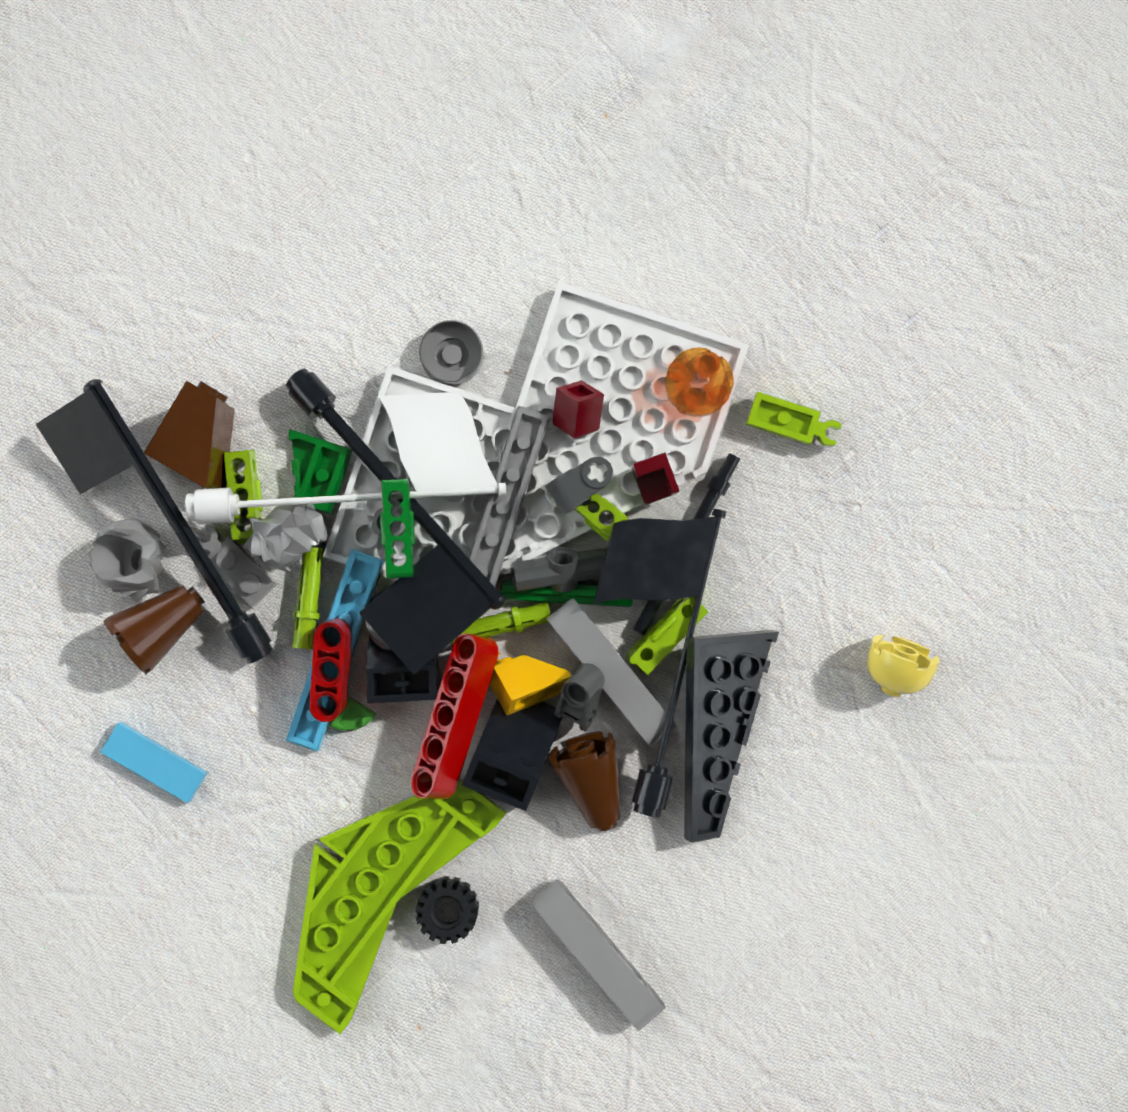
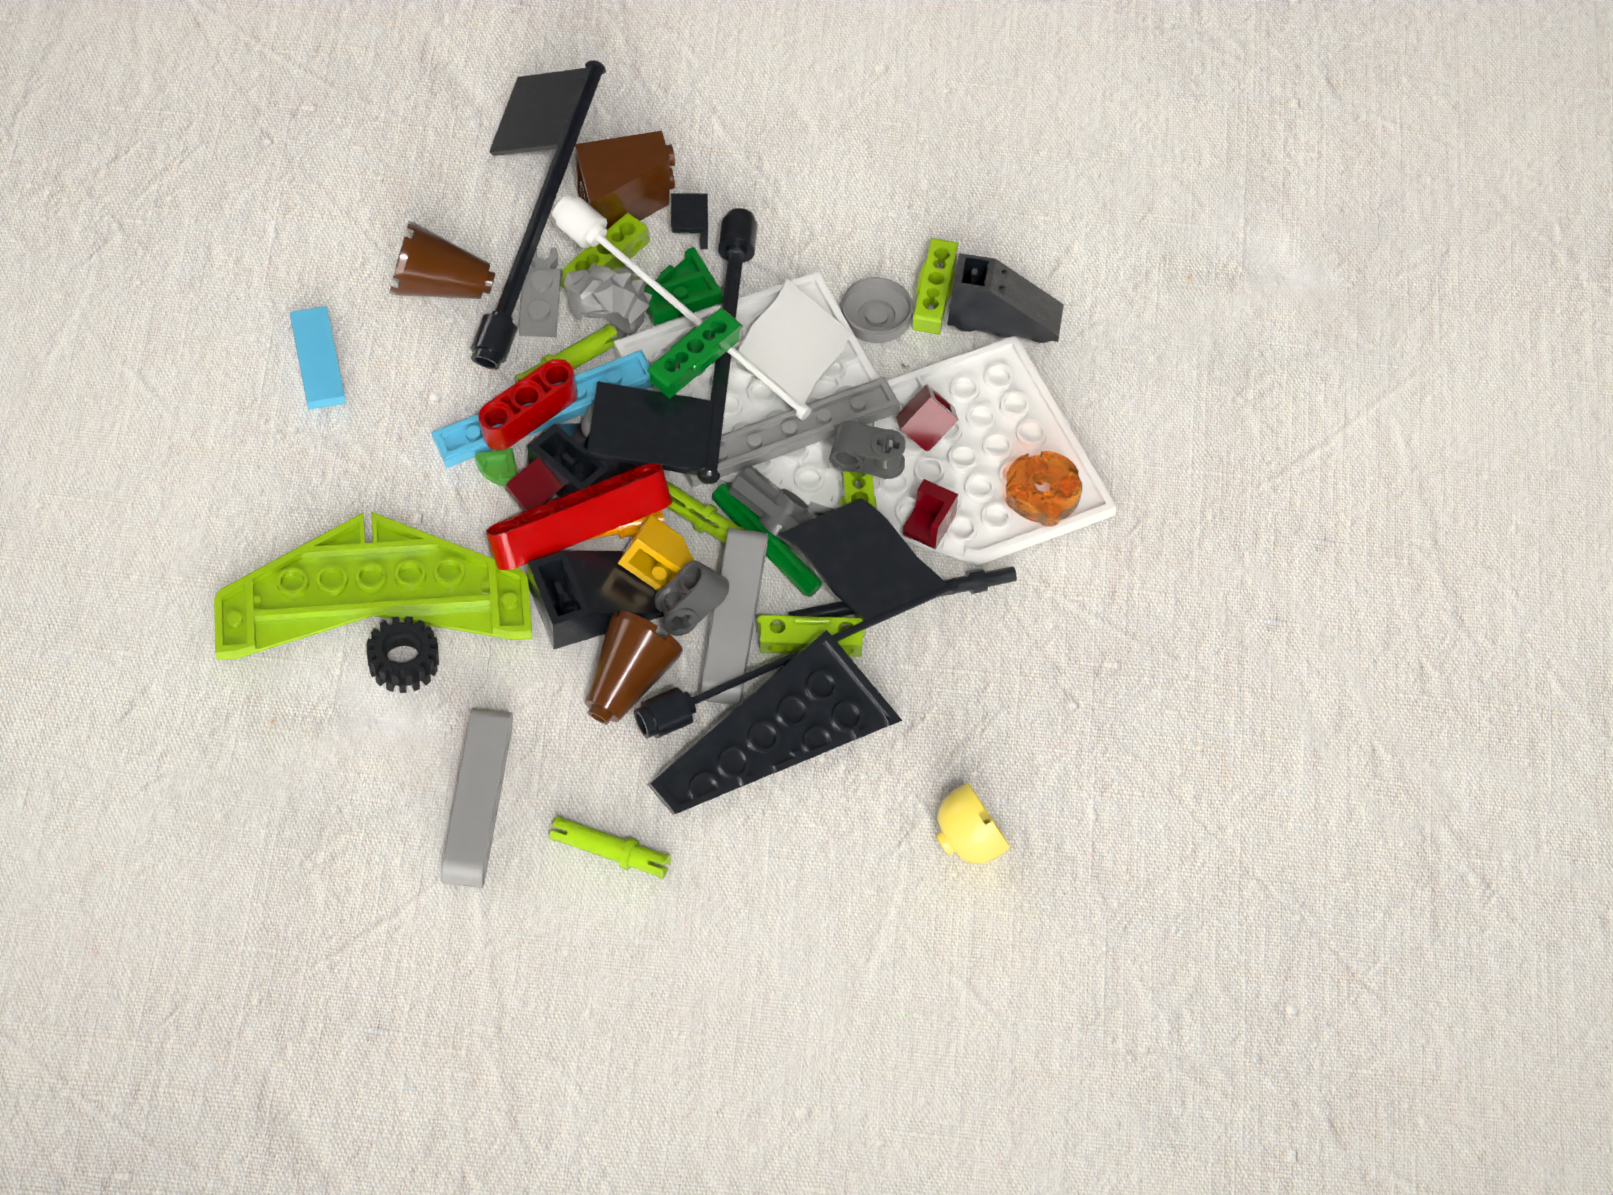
camera: 50 degrees right, 30 degrees down
(128, 558) = (476, 208): light grey hair -> none
(265, 412) = (690, 215): none -> black panel
(397, 721) = (533, 486): none -> dark red panel
(469, 284) = (935, 286): none -> lime piece
(528, 268) = (1001, 301): none -> black slope
(700, 903) = (625, 852): none -> lime pin
(789, 420) = (1089, 589): lime plate -> none

